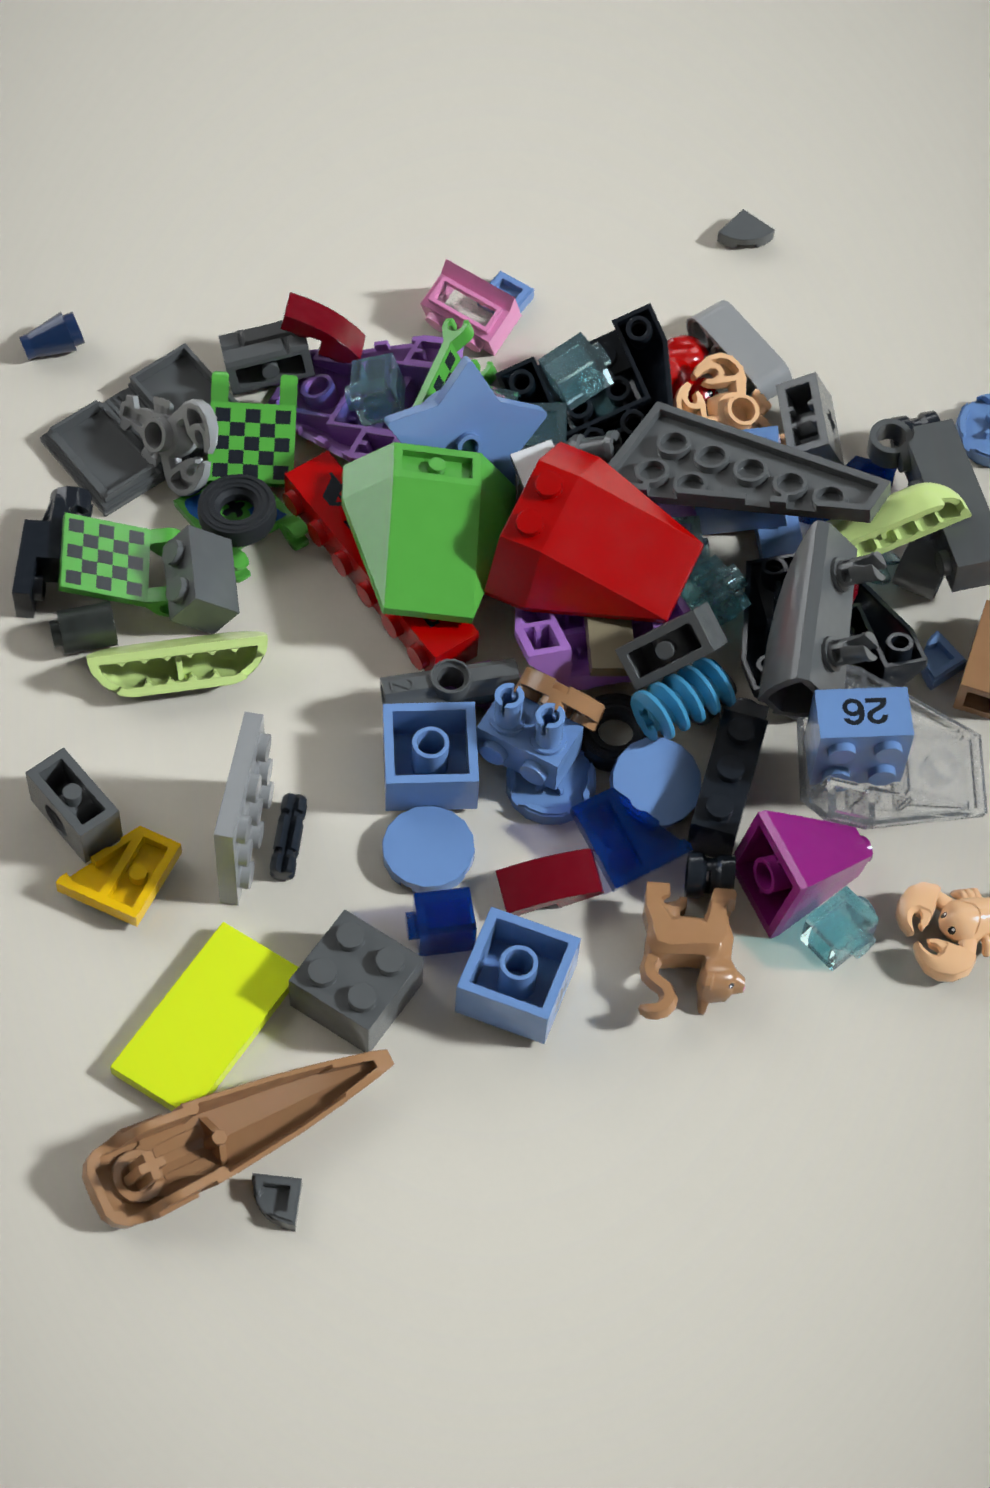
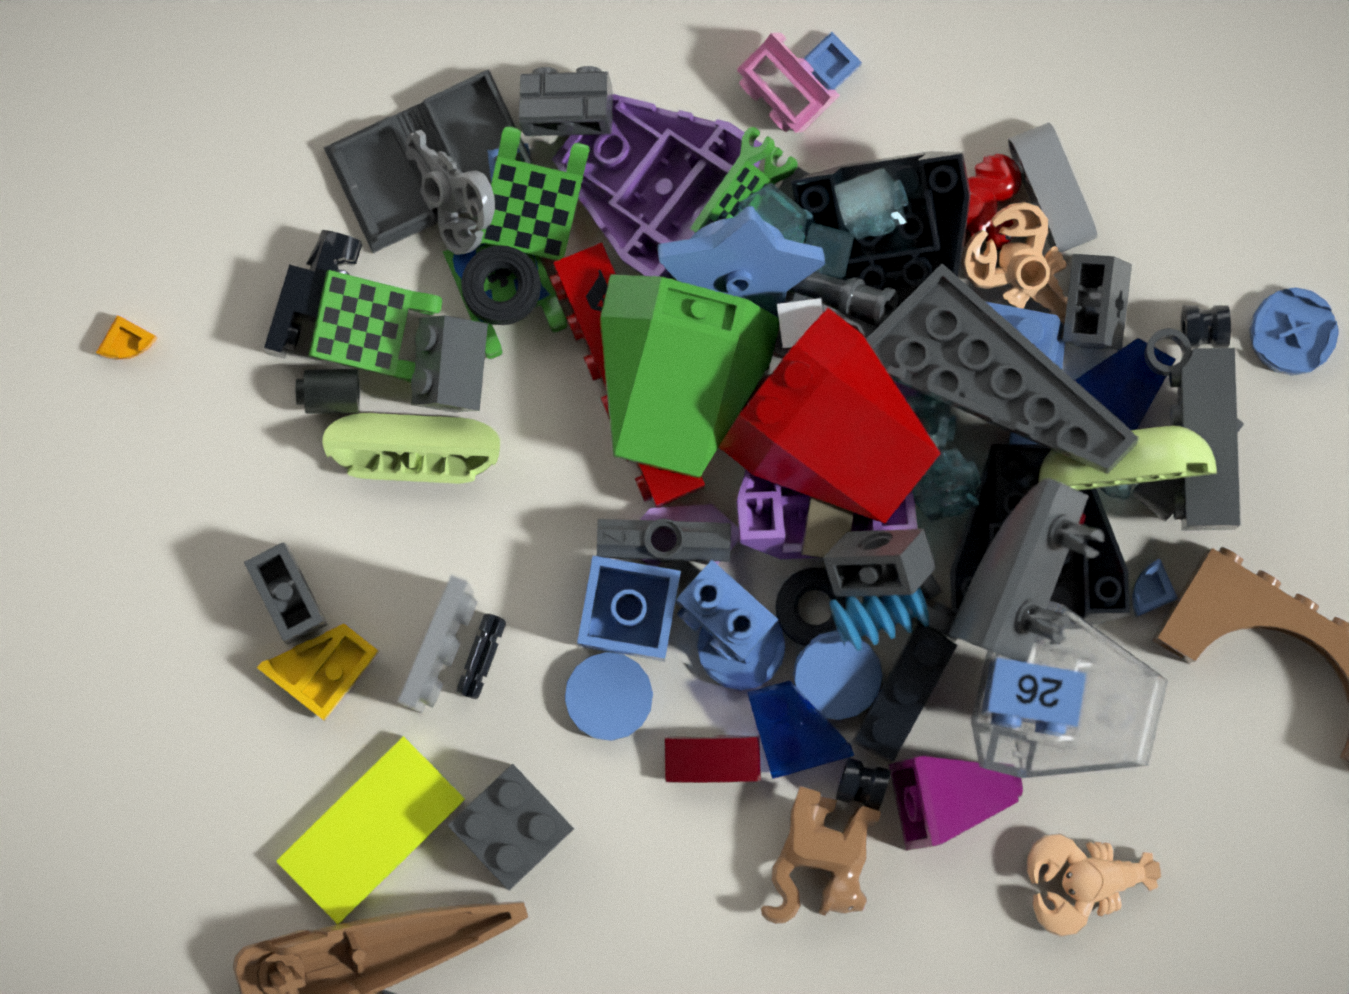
camera: 10 degrees right, 25 degrees up
(53, 337) = (356, 30): dark blue cone -> none
(311, 319) = (625, 95): dark red slope -> none
(375, 388) = (665, 182): clear light blue brick -> none
(442, 921) = (602, 780): clear blue brick -> none
(517, 975) = (658, 855): medium blue brick -> none
(584, 708) = (762, 584): medium nougat plate -> none
(745, 230) = (1103, 27): dark grey tile -> none
(841, 928) = (972, 864): clear light blue brick -> none

